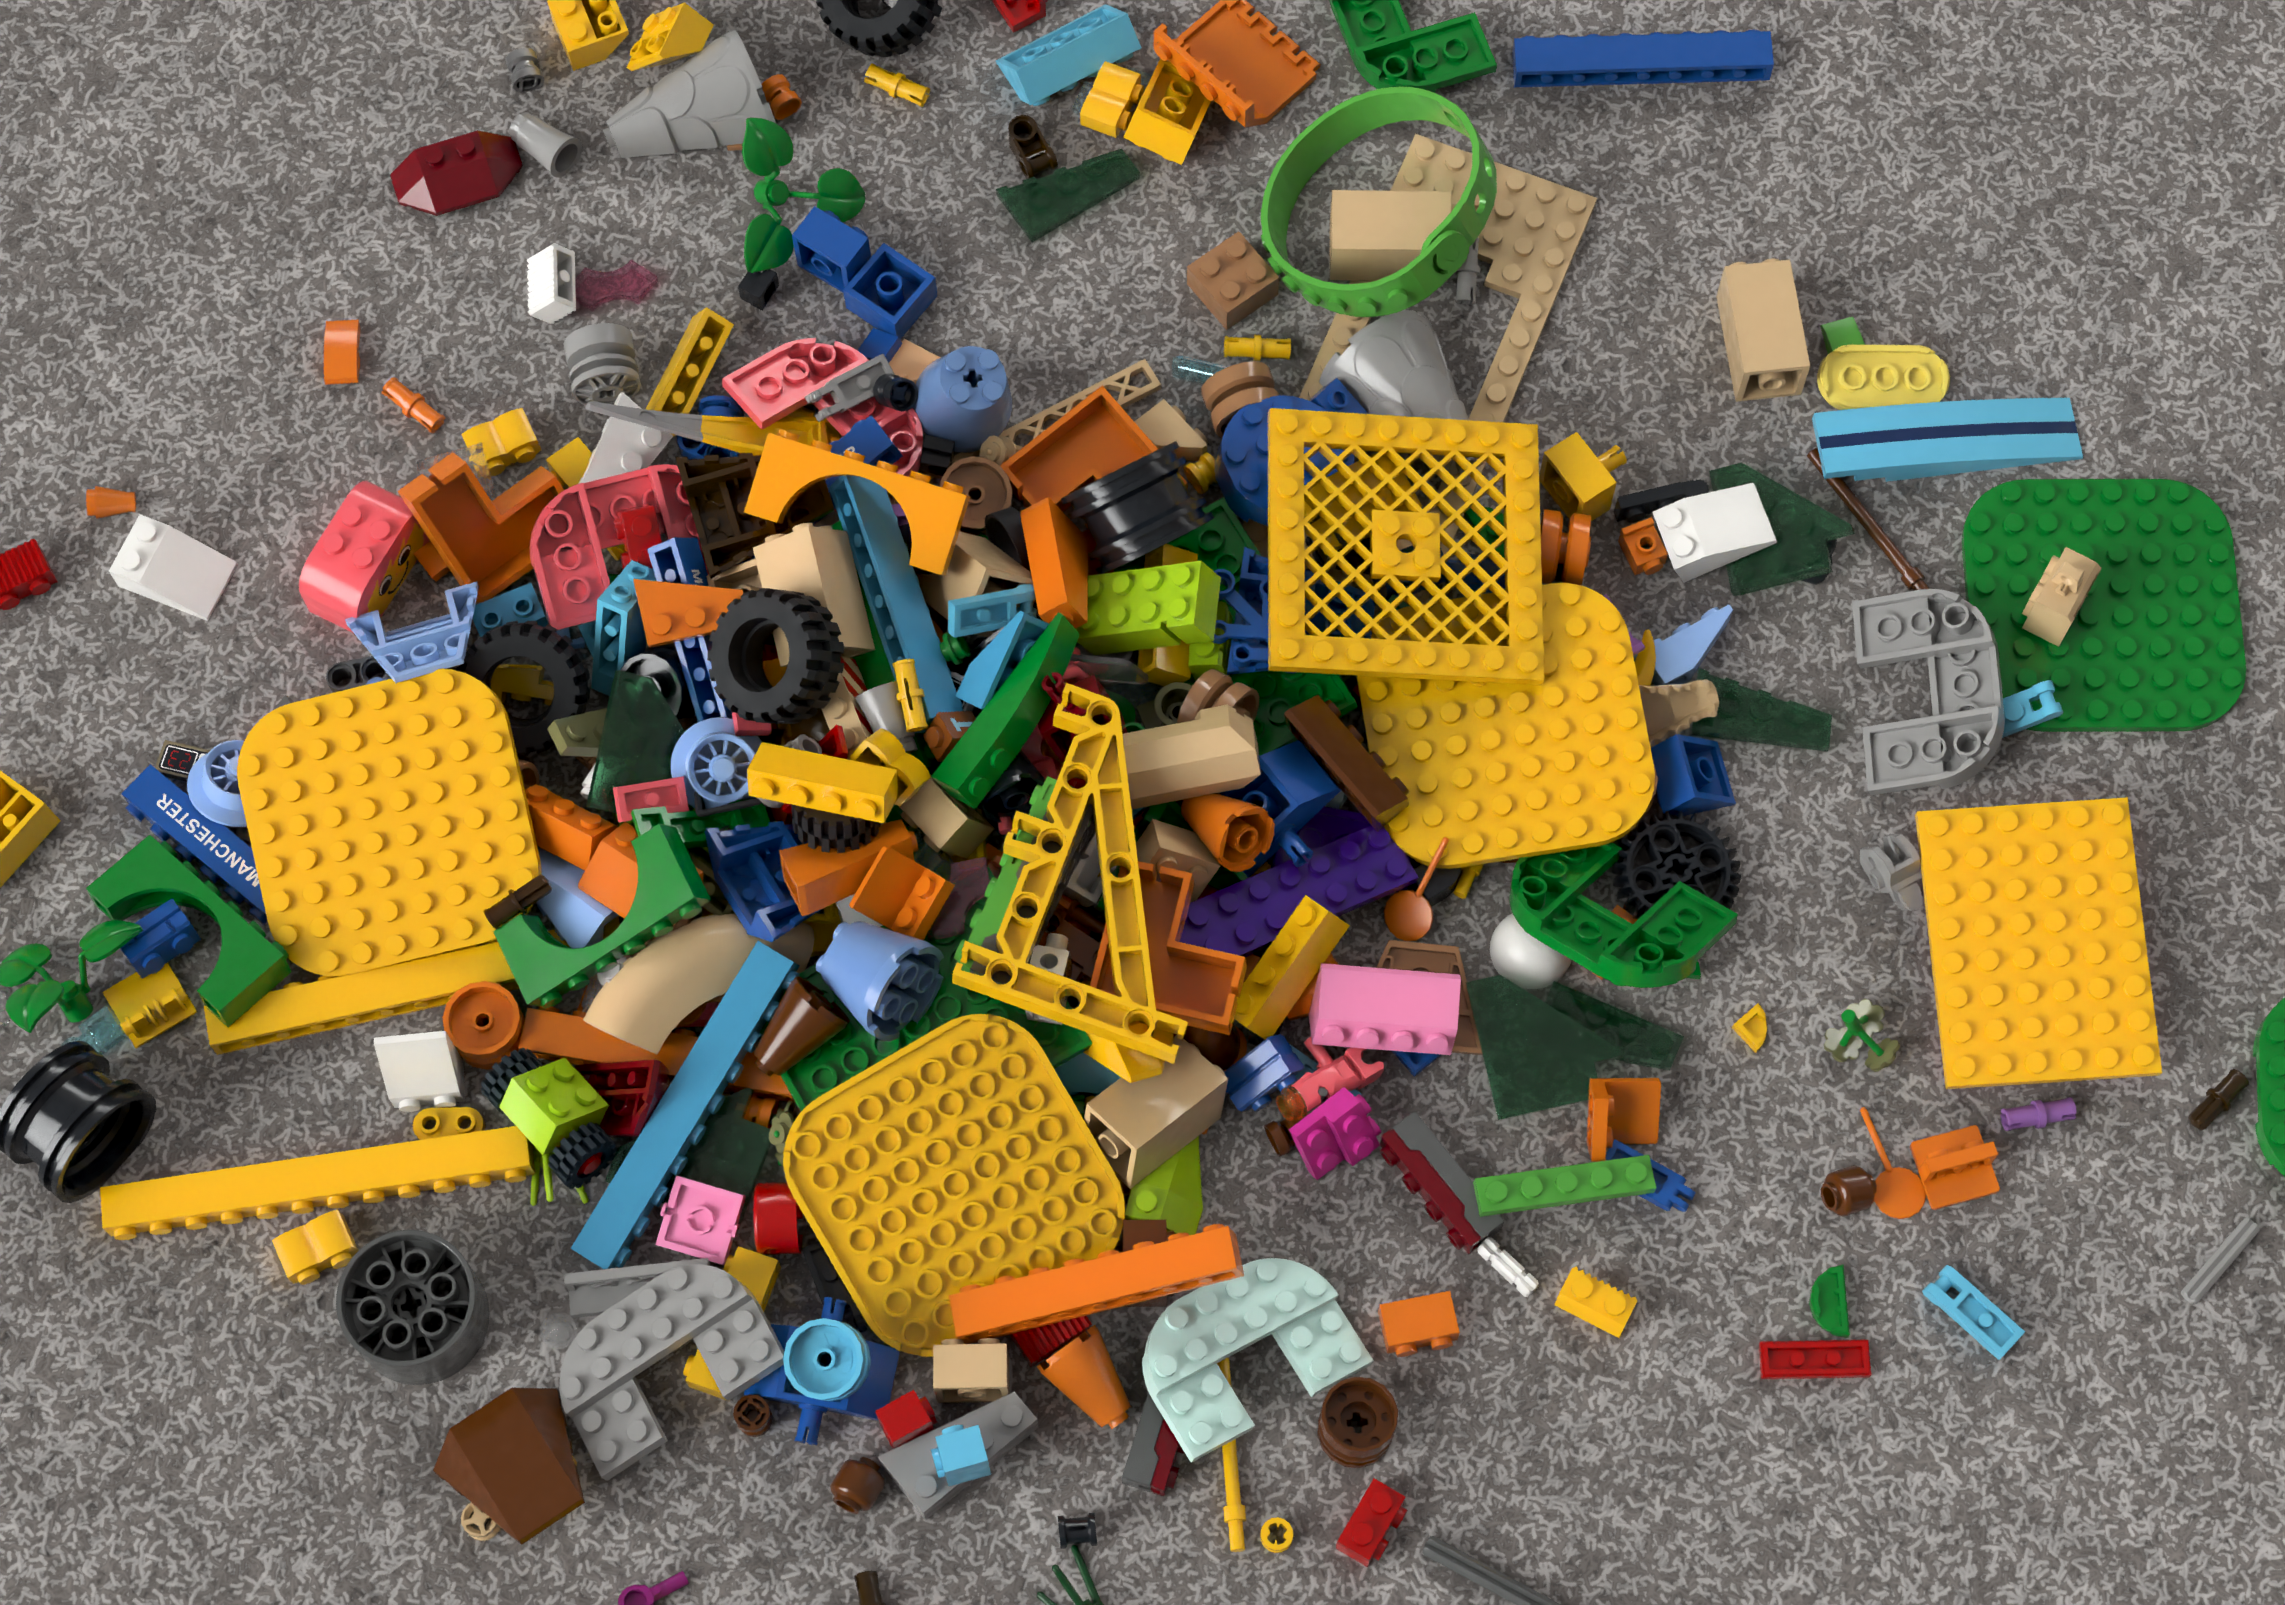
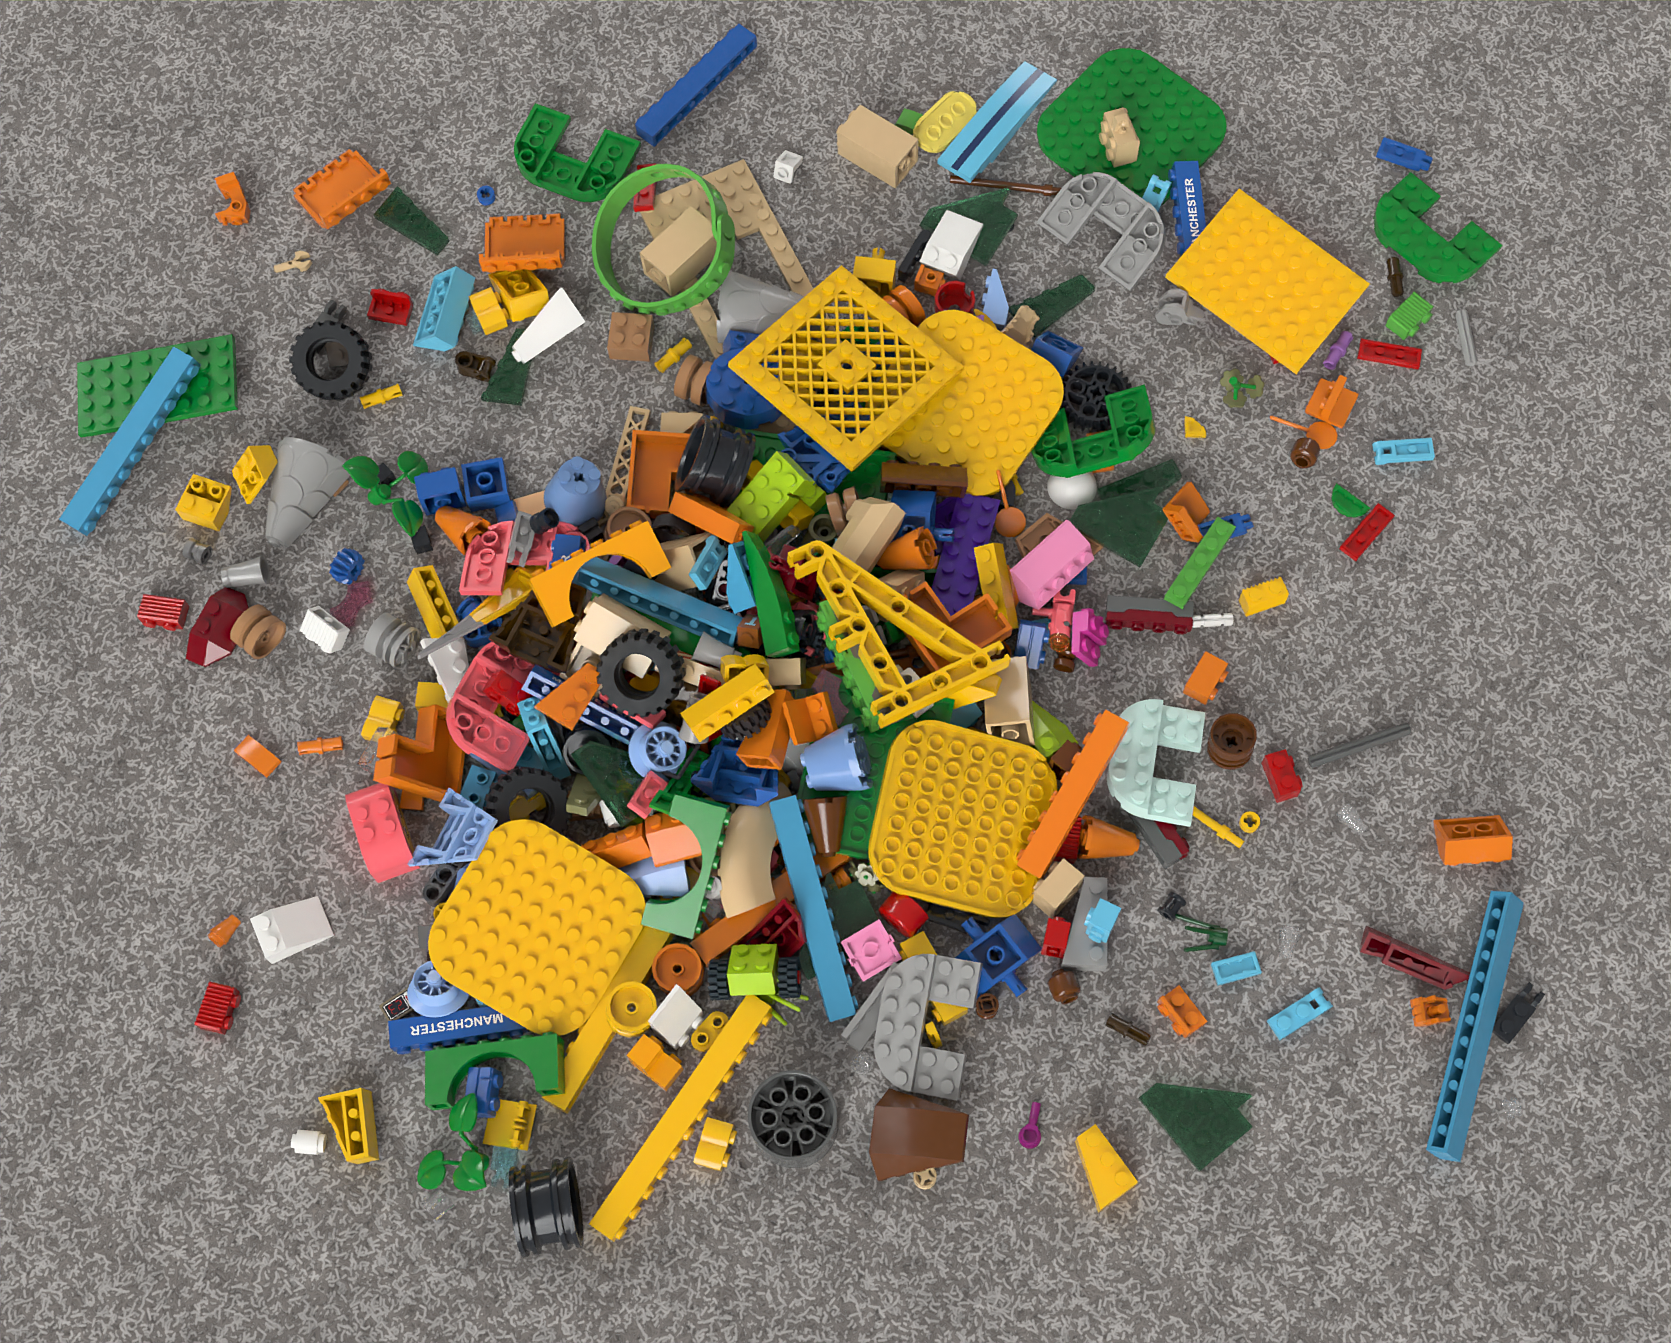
camera: 45 degrees left, 0 degrees up
(354, 1090) = (654, 1062): none -> light orange brick
(378, 990) = (630, 995): none -> yellow wheel
(420, 100) = (163, 611): none -> red brick
(482, 217) = (258, 631): none -> medium nougat wheel
(518, 901) = (638, 898): dark brown axle -> none
(649, 237) = (347, 566): none -> blue gear
(666, 1374) = (931, 1032): none -> yellow tile
(780, 97) = (335, 448): orange wheel -> none
(799, 174) = (385, 474): none -> black piece
(811, 311) = (460, 526): none -> orange cone
(848, 1365) = (987, 946): medium azure wheel -> none
(915, 715) = (730, 639): yellow pin -> none
(954, 648) = (708, 596): green plate -> none
(1155, 179) = (549, 326): none -> white slope
(1193, 369) = (660, 388): clear light blue slope -> none
(1430, 136) = (645, 198): none -> red tile
(1637, 251) = (786, 166): none -> white bracket
(1654, 592) = (954, 295): none -> red piece
(2060, 755) = (1188, 203): none -> blue brick
(2099, 1183) = (1389, 353): none -> red tile
(2177, 1163) = (1409, 316): none -> bright green brick

